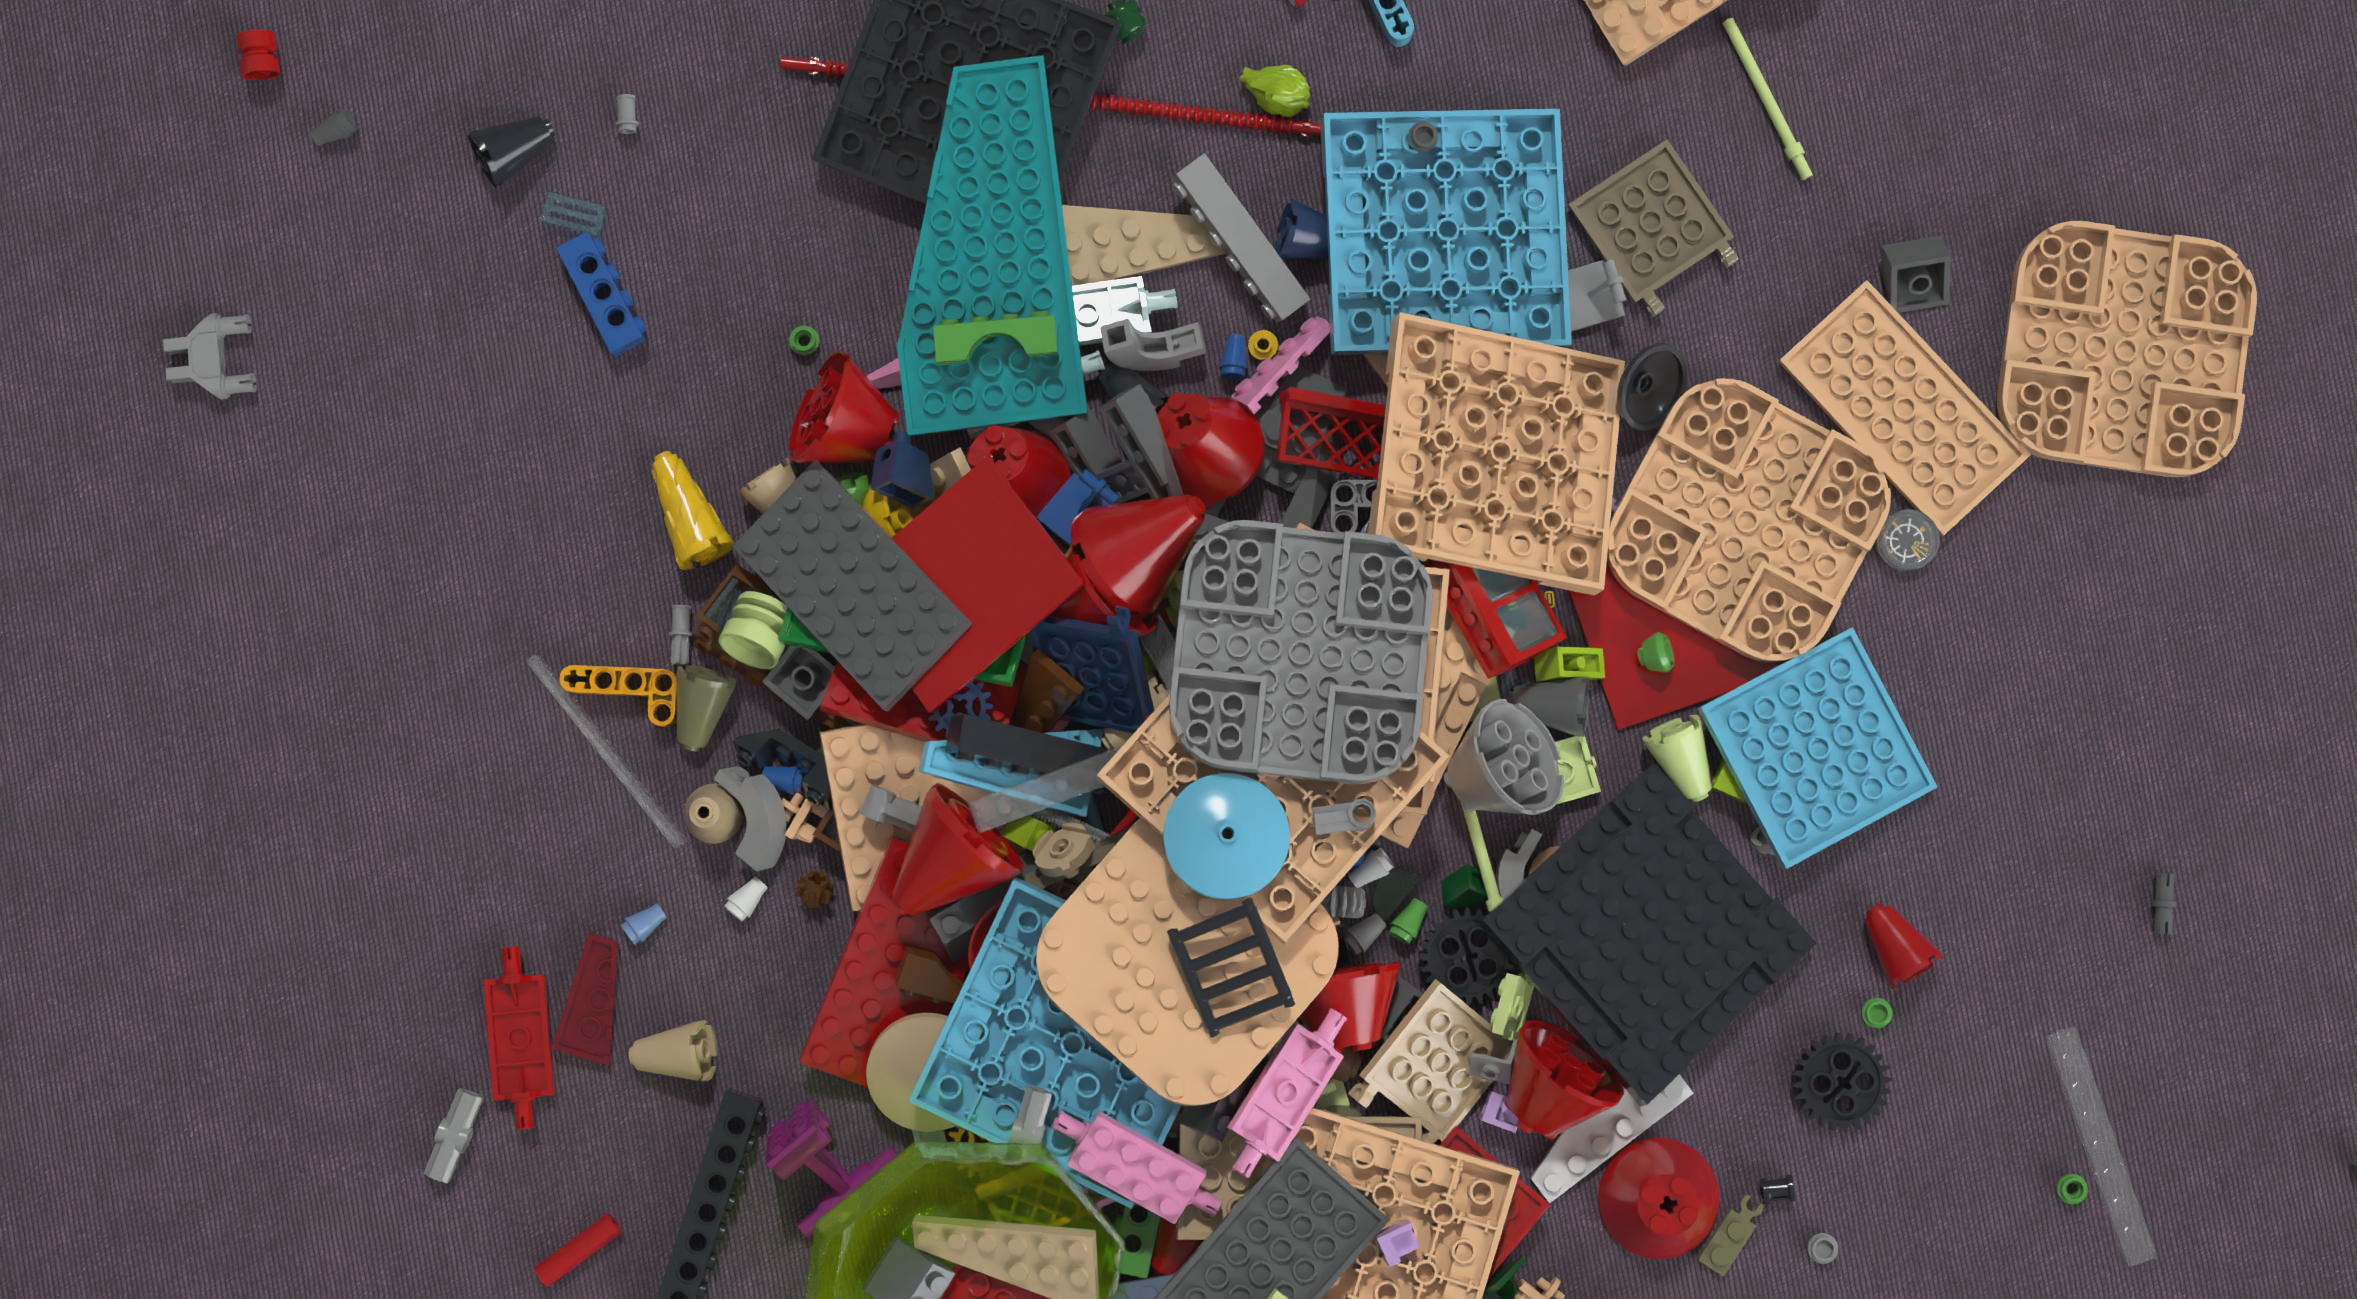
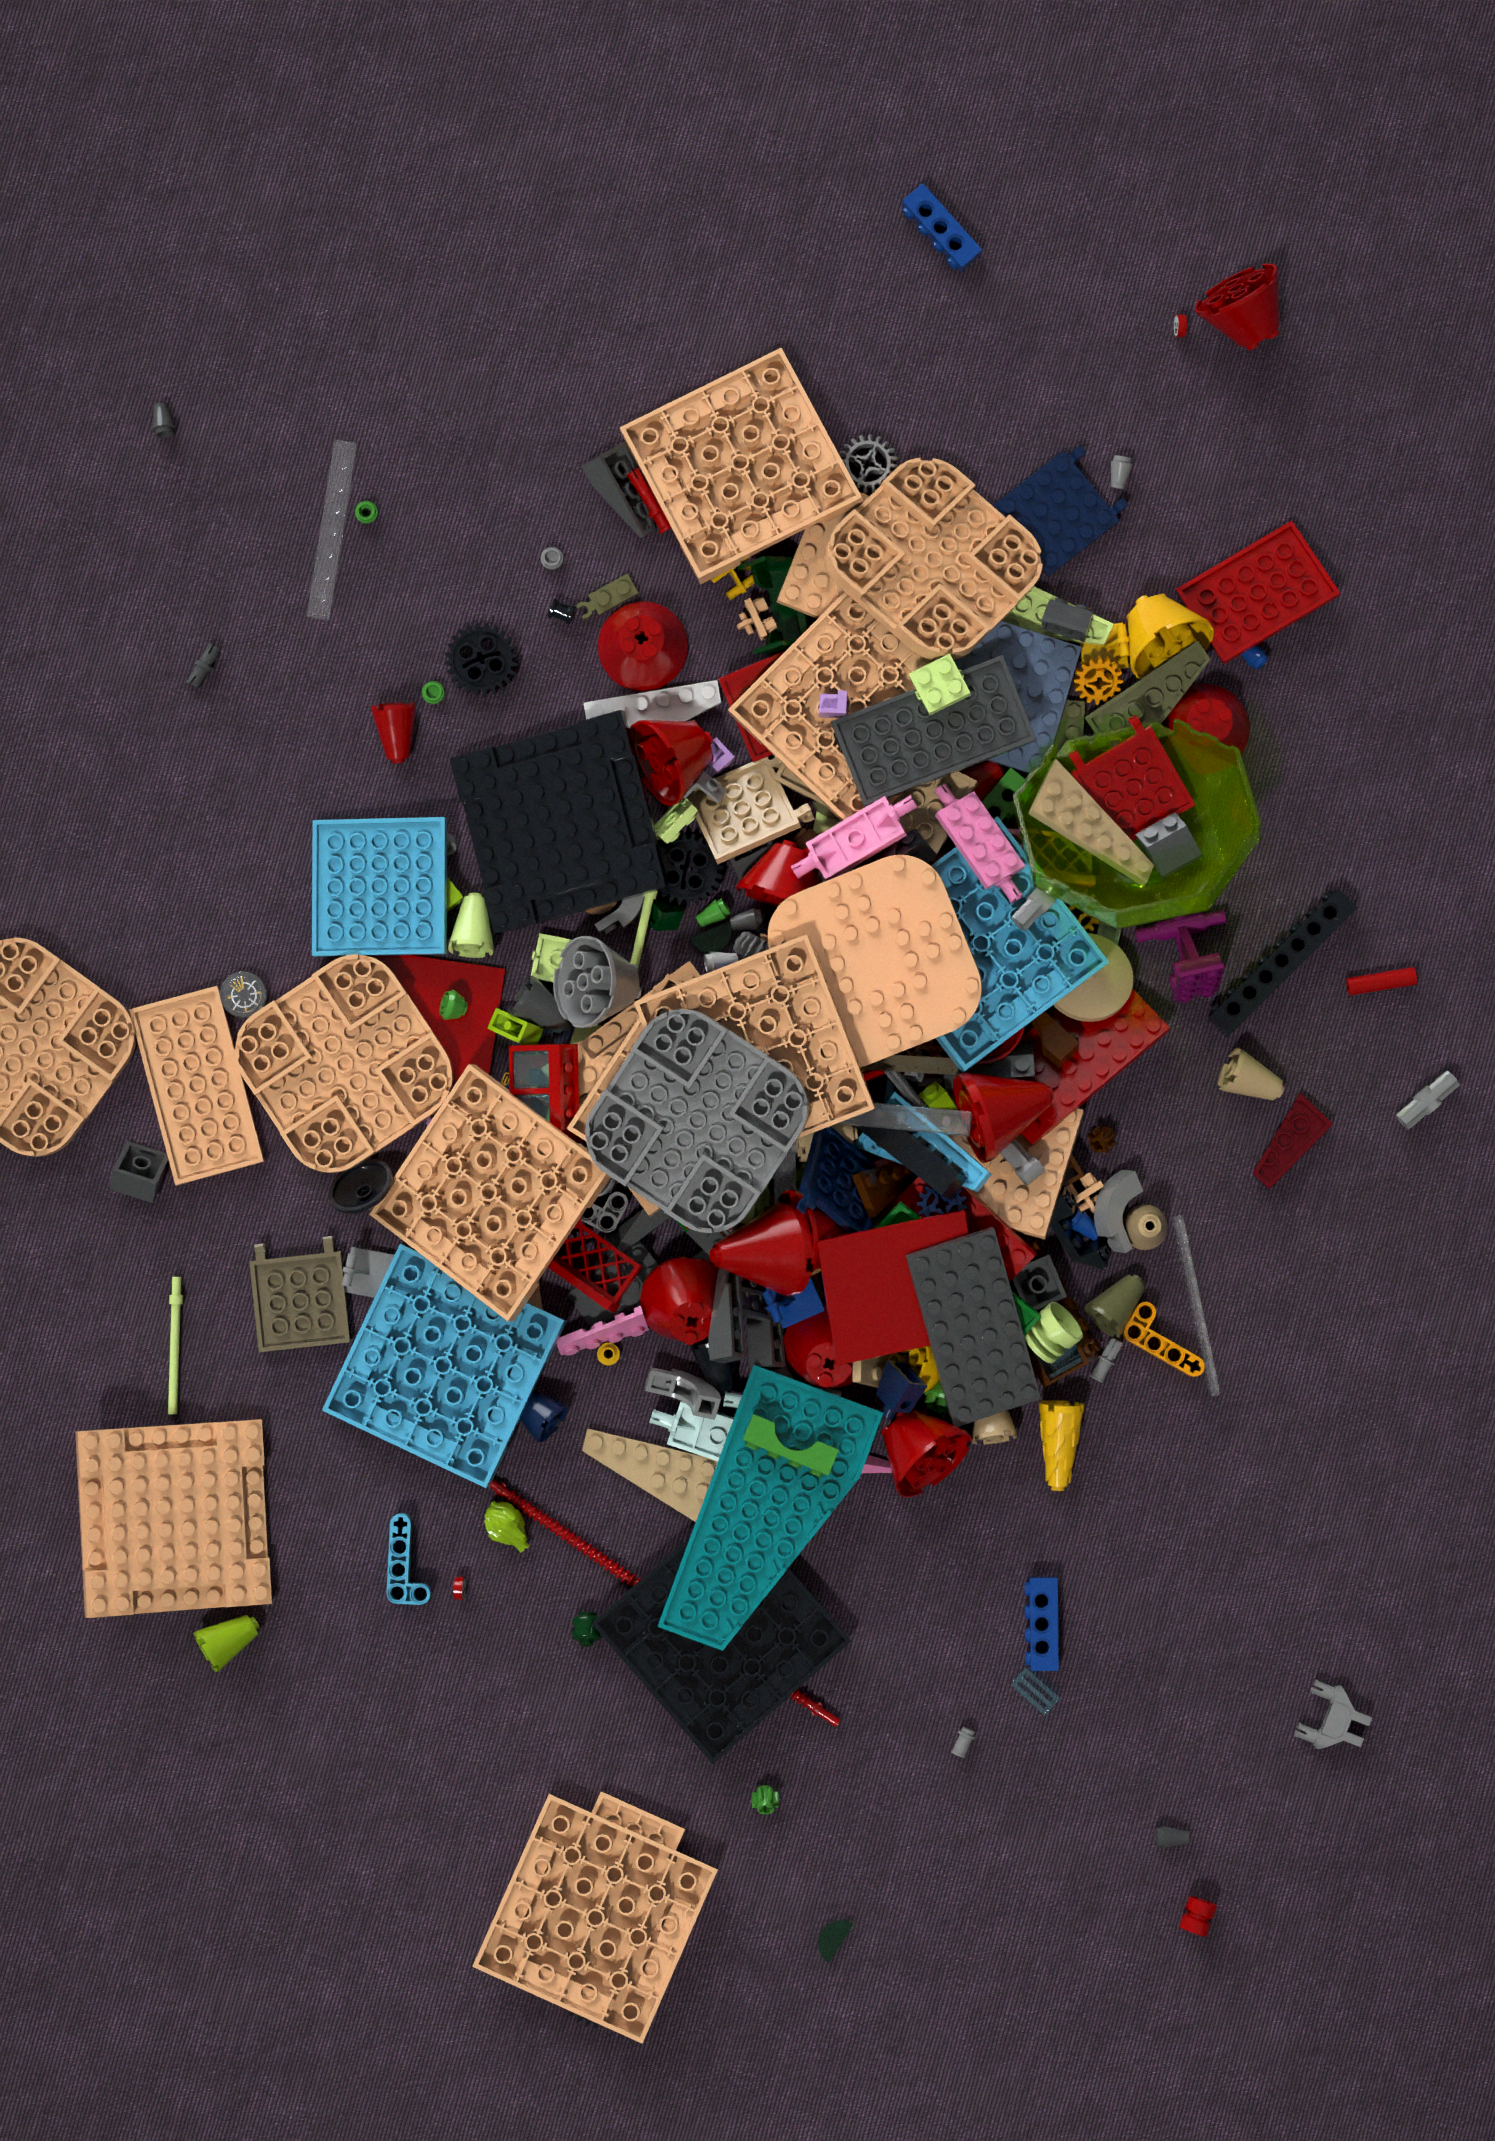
camera: 155 degrees left, 0 degrees up
(510, 146) = (1055, 1759): black cone -> none
(519, 1037) = (1351, 1143): red plate -> none
(643, 923) = (1229, 1176): medium blue cone -> none
(745, 900) = (1153, 1156): white cone -> none
(802, 331) = (920, 1527): bright green plate -> none
(1074, 846) = (922, 1065): tan plate -> none
(1220, 865) = (832, 1020): medium azure dish -> none
(1234, 358) = (633, 1354): blue cone -> none
(1239, 238) = (587, 1433): light grey brick -> none
(1259, 939) = (823, 944): black bar -> none
(1340, 819) = (728, 997): light grey piece -> none
(1422, 136) = (426, 1436): dark grey plate -> none

